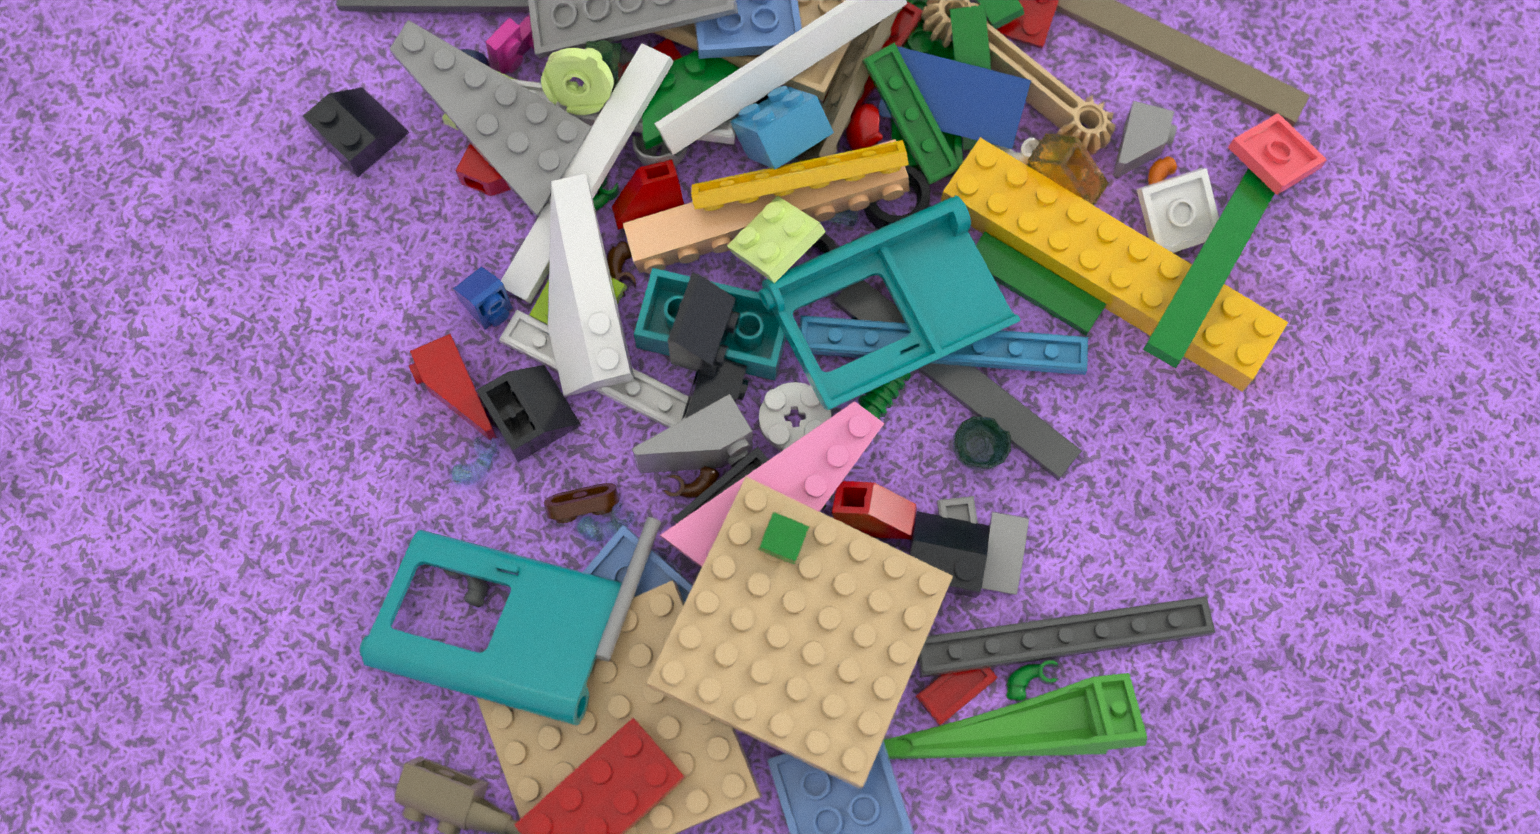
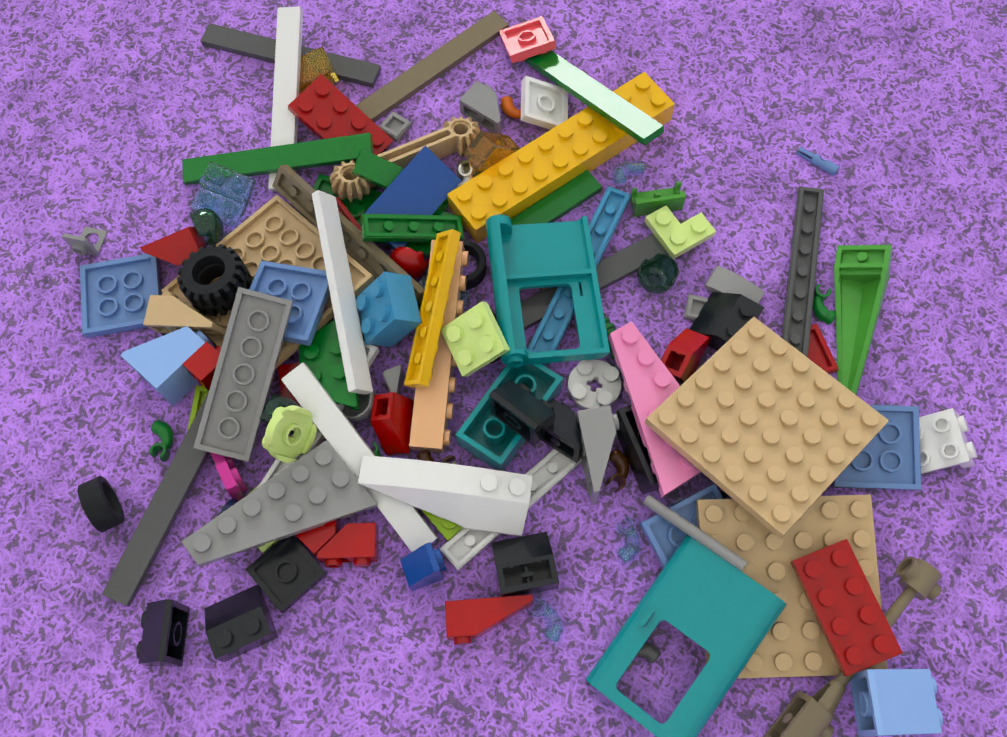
camera: 65 degrees left, 5 degrees down
(315, 57) = (163, 634): none -> black slope
(427, 154) = (286, 572): none -> black plate
(486, 209) = (351, 544): none -> red slope
(592, 499) = (607, 550): reddish brown plate -> none
(702, 172) = (394, 378): none -> light grey slope
(783, 538) = (703, 406): green tile -> none
(1049, 452) = (678, 237): none -> yellowish green plate
(1067, 42) = (395, 126): none -> light grey tile
(1098, 409) = (650, 201): none -> bright green hinge
(1132, 354) = (625, 168): none -> clear light blue arm
(1262, 609) = (817, 160): none -> medium blue pin

